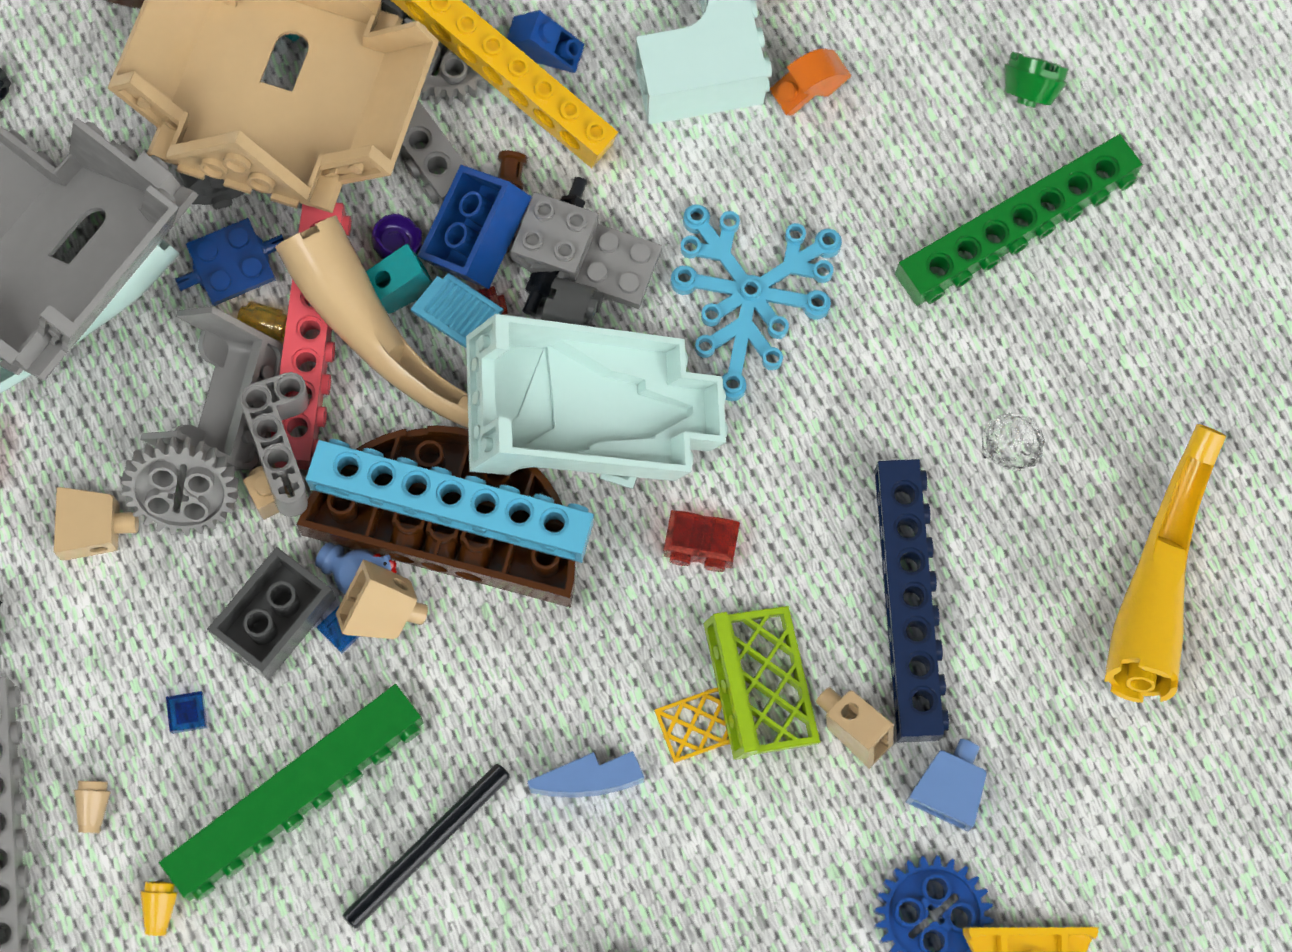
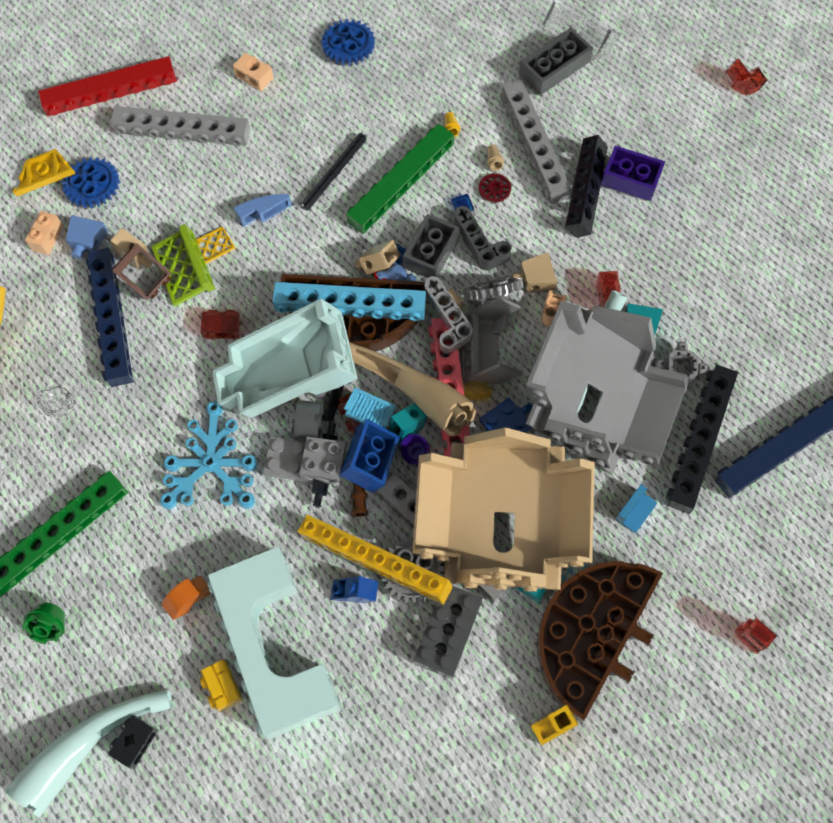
camera: 175 degrees right, 5 degrees down
(63, 82) = (636, 510): none -> dark azure panel
(77, 453) = (551, 305): none -> light nougat piece
(111, 738) = (495, 188): none -> dark red wheel
(176, 625) = (477, 237): none -> dark grey beam
(856, 679) = (127, 258): none -> reddish brown window
(1031, 807) = (44, 233): none -> light nougat brick

